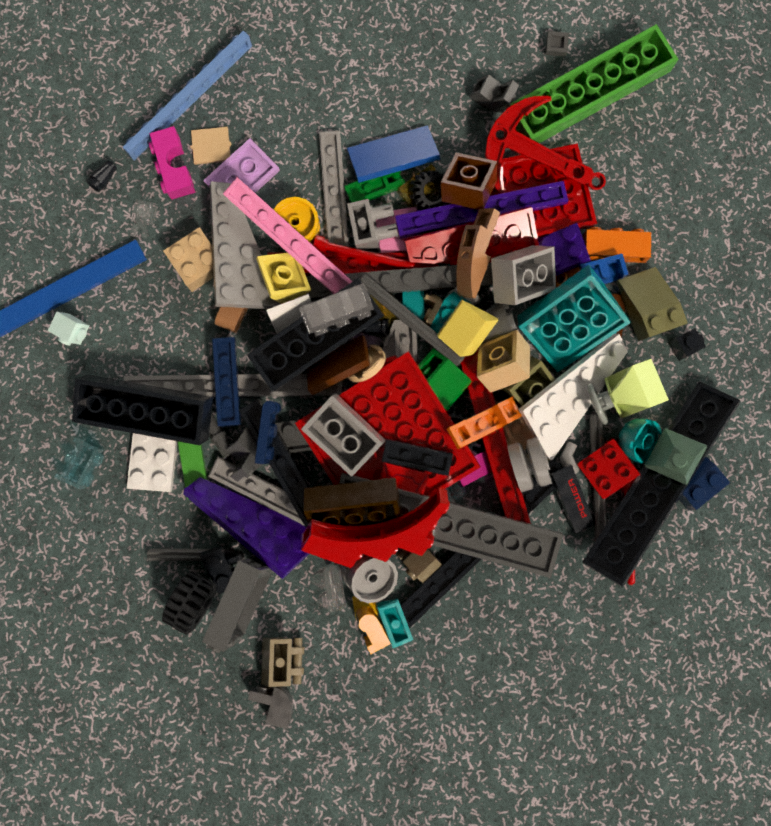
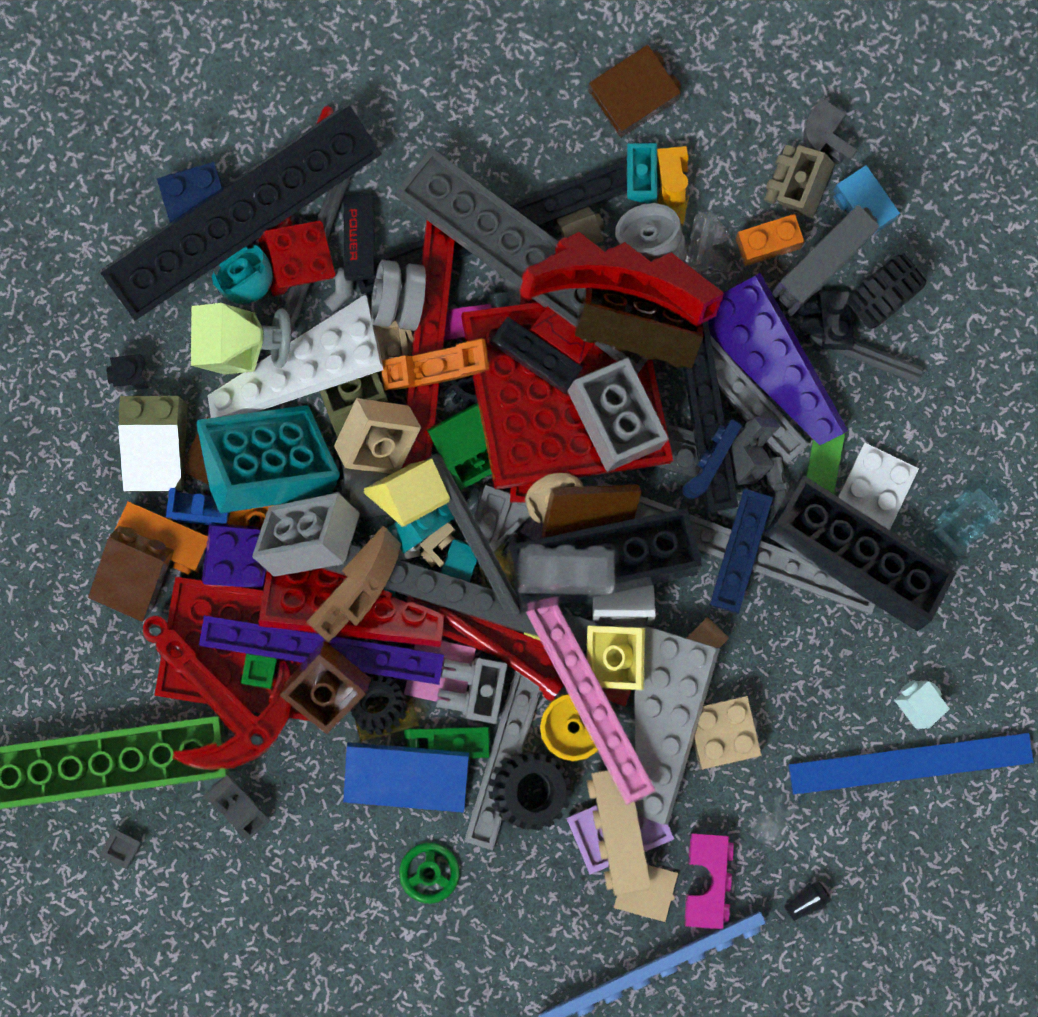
camera: 155 degrees left, 0 degrees up
(230, 666) = (867, 192): none -> dark azure brick
(236, 160) = (621, 837): none -> tan brick
(286, 609) = (769, 240): none -> orange brick
(295, 165) = (552, 797): none -> black tyre
(354, 95) = (409, 883): none -> green piece
(422, 682) = (635, 90): none -> reddish brown brick
(516, 179) = (259, 671): none -> green plate
(628, 211) = (130, 573): none -> reddish brown brick
(675, 456) = (211, 236): sand green slope -> none

